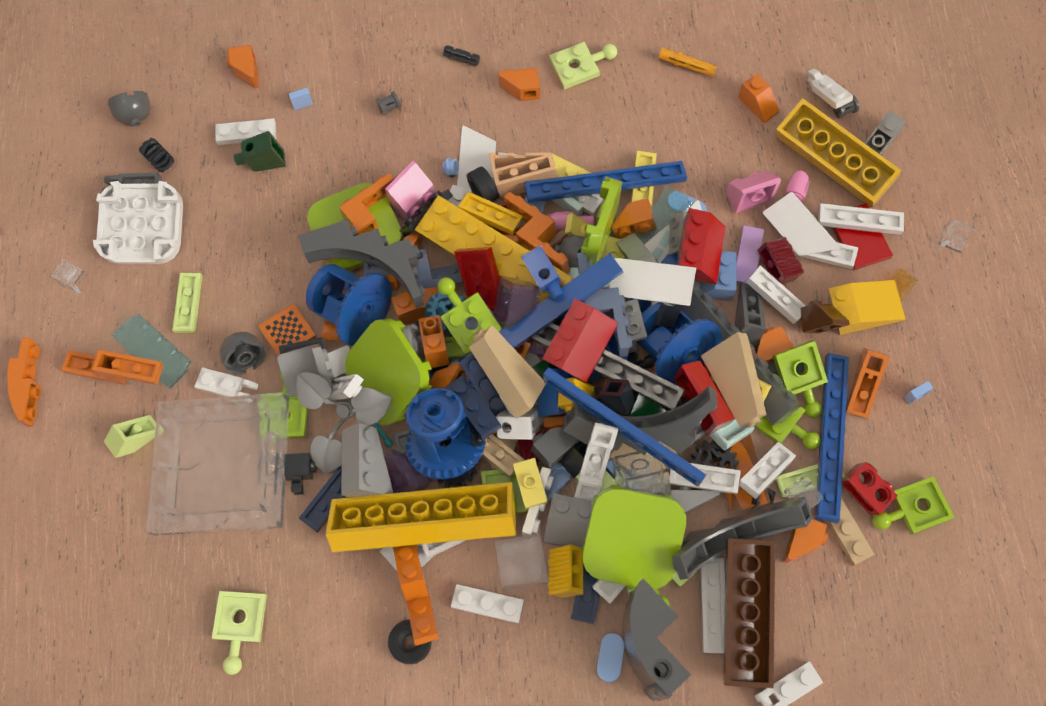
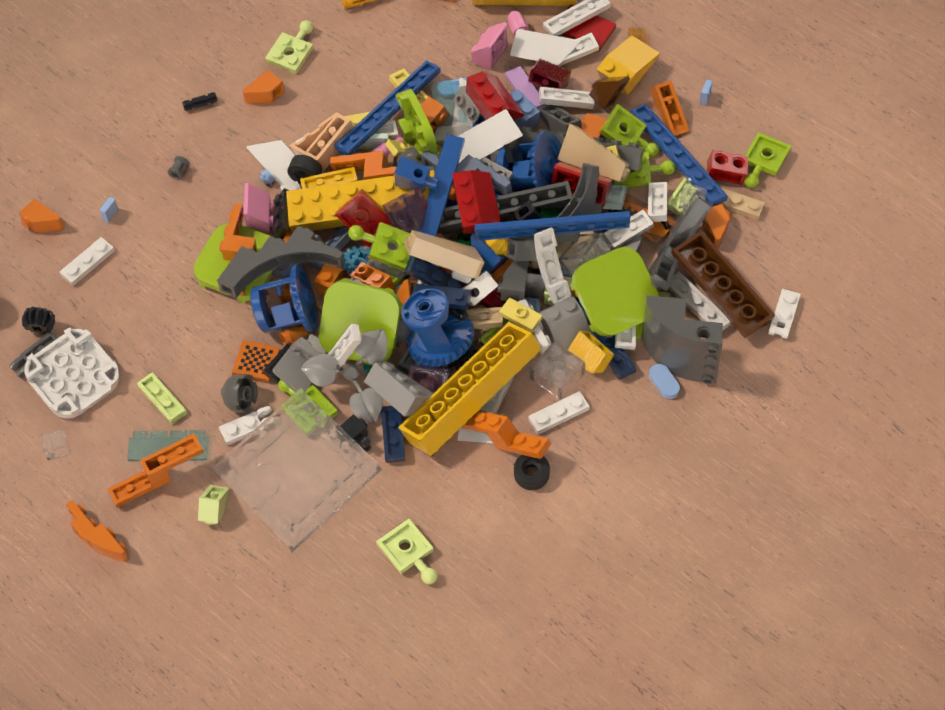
camera: 40 degrees left, 10 degrees down
(261, 153) = (118, 263): dark green torso -> none

